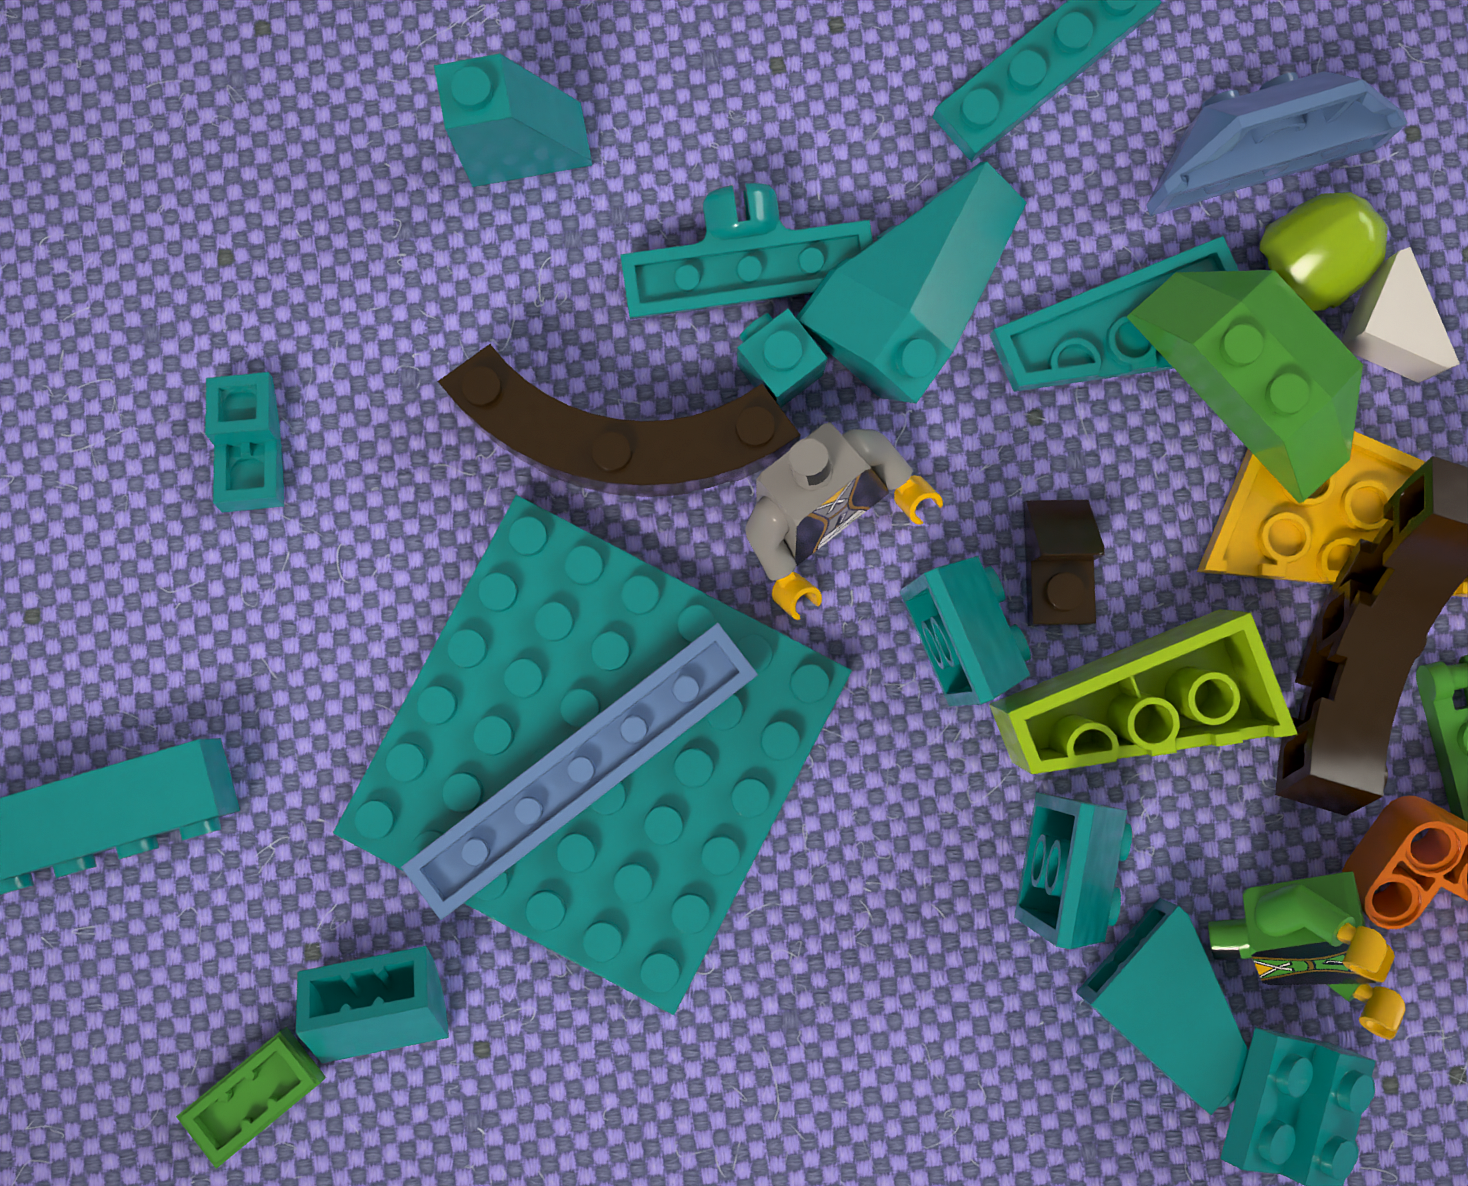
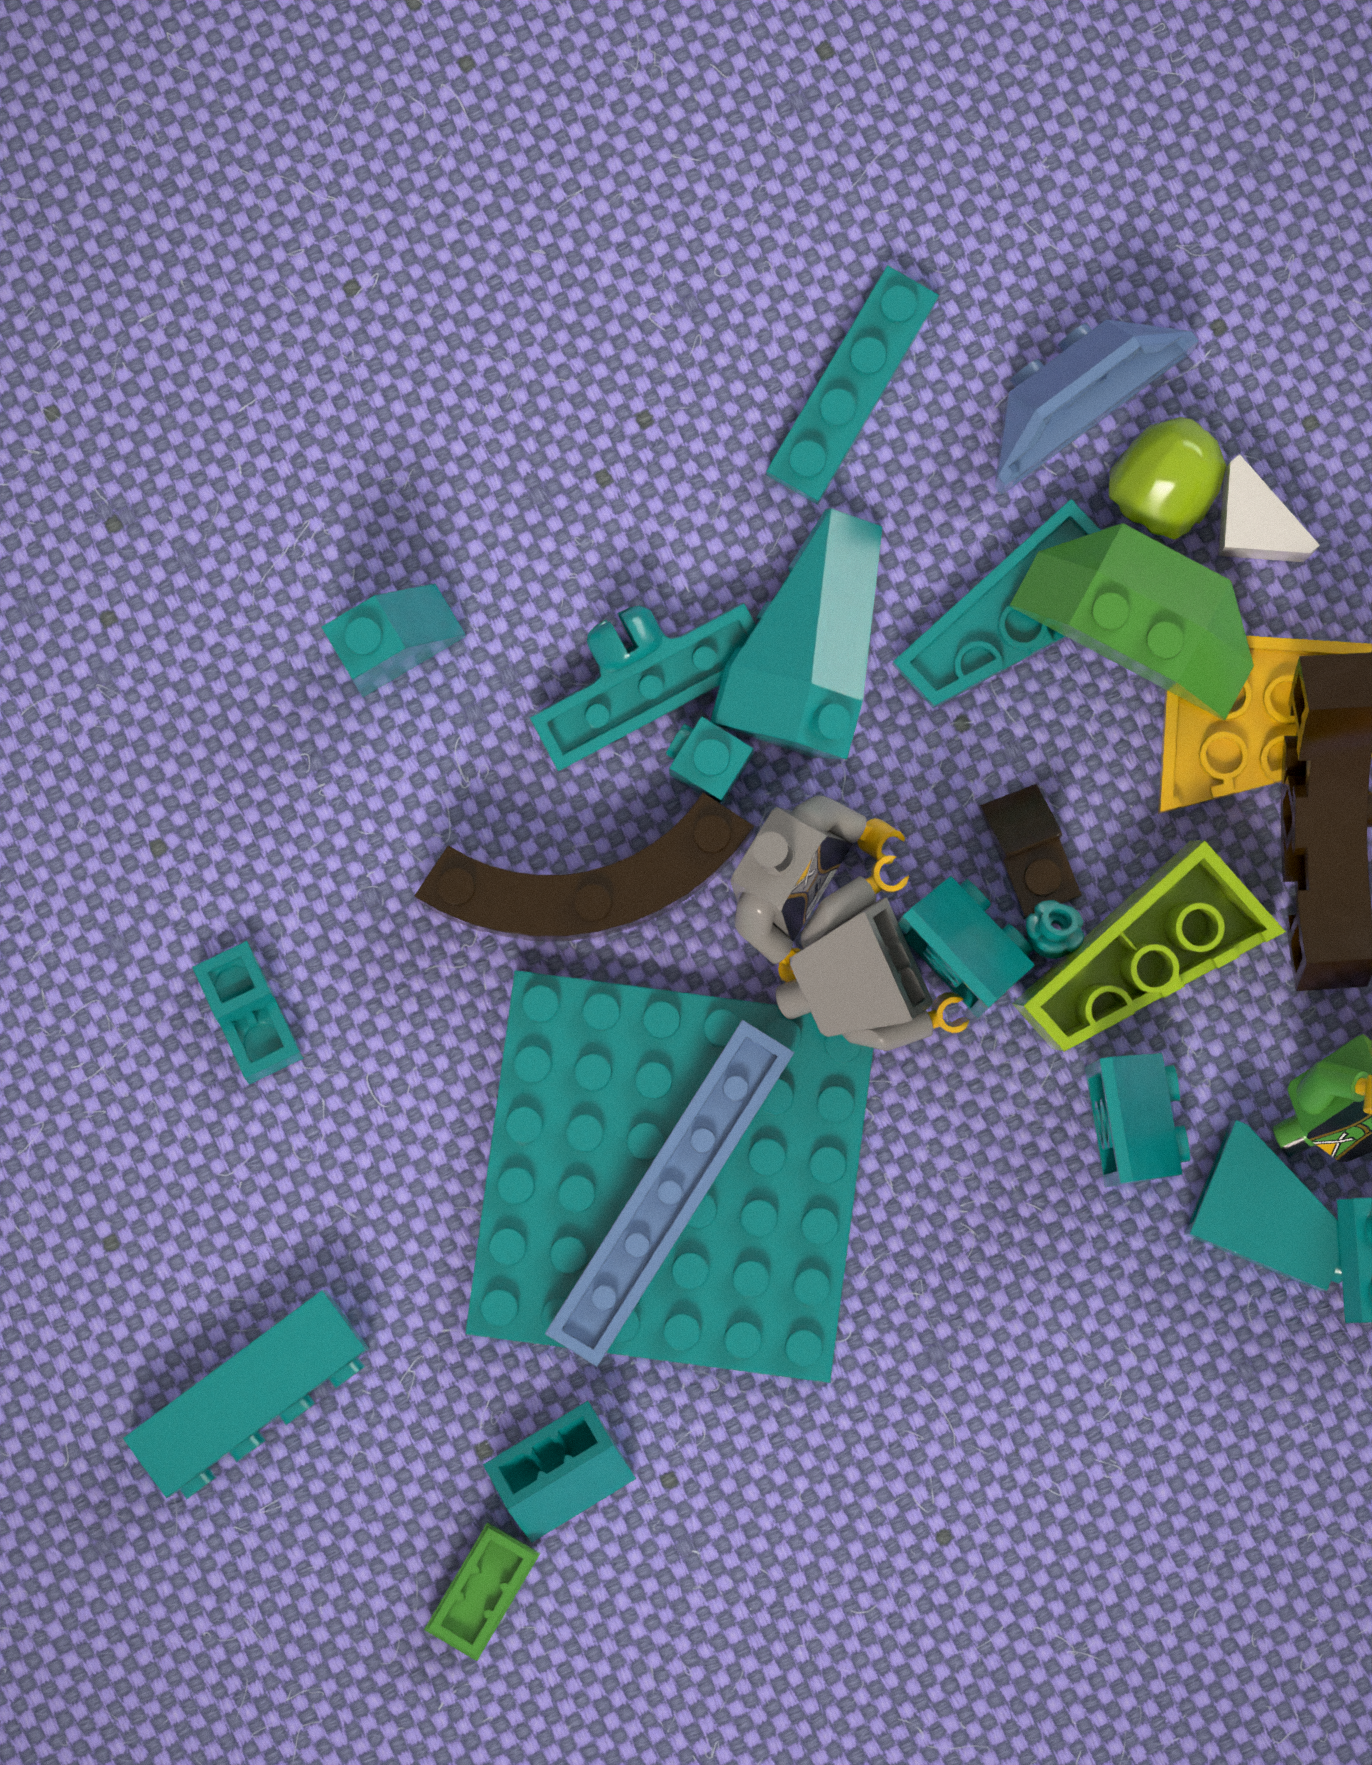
camera: 15 degrees left, 0 degrees up
(855, 619) = (861, 972): none -> light grey torso
(1048, 649) = (1048, 940): none -> teal plate

